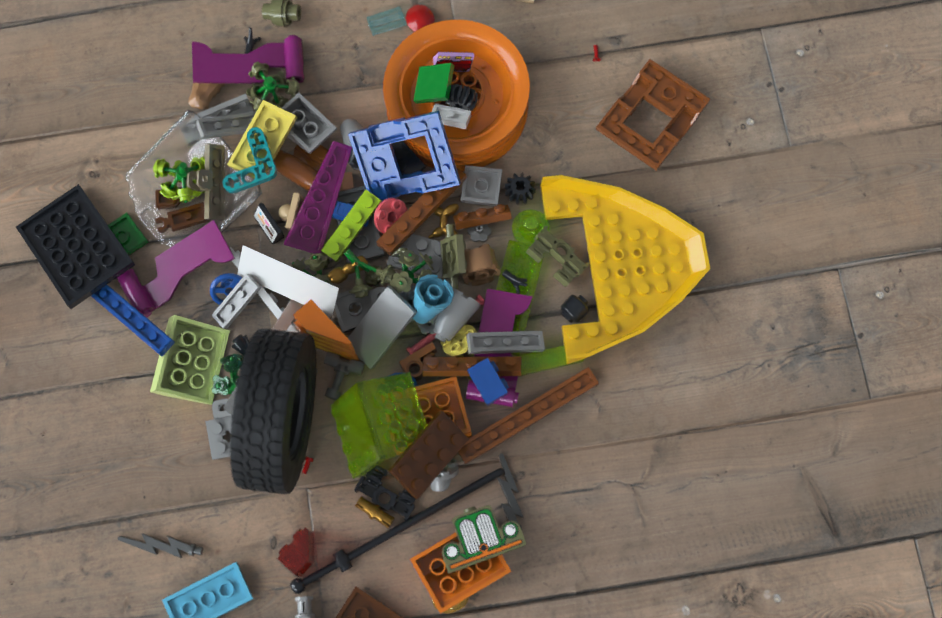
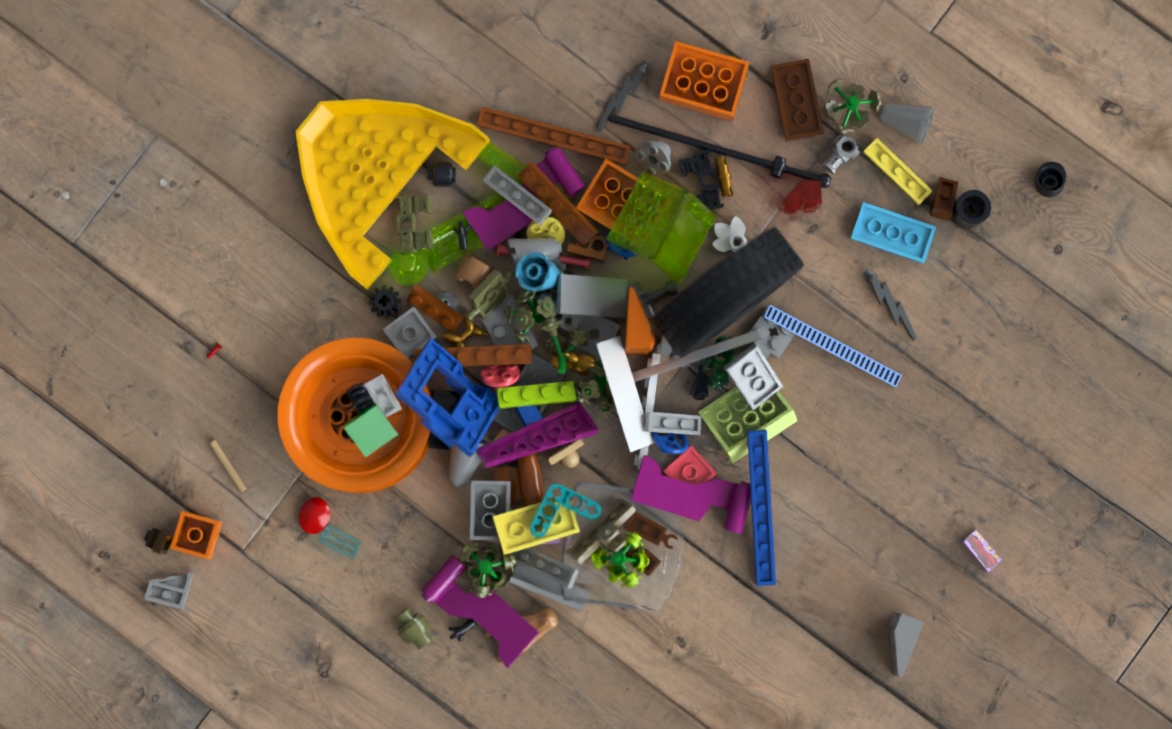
camera: 135 degrees left, 10 degrees up
(75, 246) = (748, 589): black plate -> none
(128, 233) = (707, 565): green tile -> none
(166, 473) = (833, 346): none -> light blue sticker
(195, 287) = (690, 468): none -> coral tile
(206, 382) = (753, 376): none -> tile
(268, 224) = (592, 464): slope -> none
(330, 474) = (728, 234): none -> white plate
(428, 454) = (652, 167): reddish brown plate -> none
(460, 60) = (336, 436): slope -> none
(480, 539) = (675, 79): brick -> none
(487, 381) = (560, 176): blue brick -> none
(668, 95) = (203, 263): dark orange piece -> none

